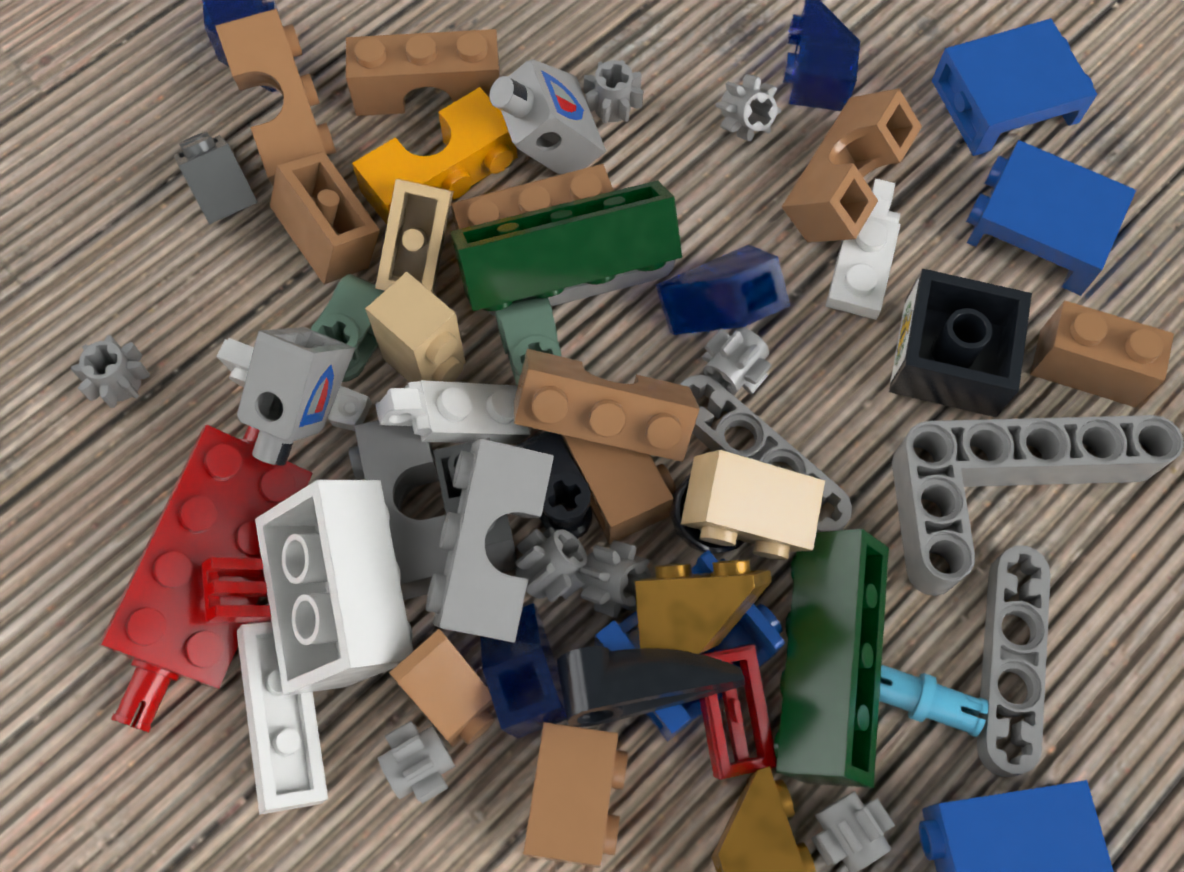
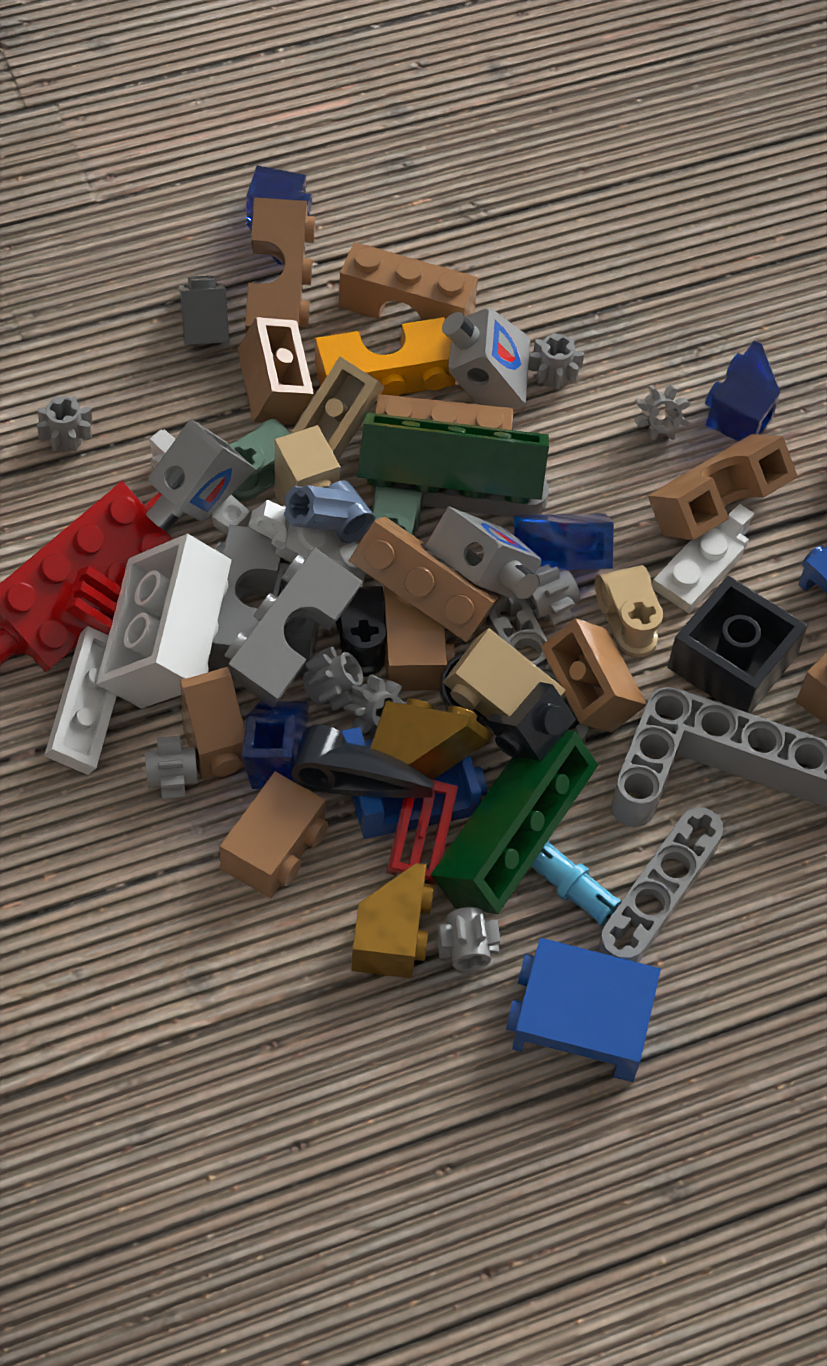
camera: 20 degrees right, 10 degrees down
(465, 366) = (329, 509): none -> sand blue piece
(659, 349) = (506, 564): none -> light grey torso
(817, 541) = (533, 725): none -> black bracket
(824, 337) = (630, 609): none -> tan piece
(830, 440) = (593, 675): none -> medium nougat brick

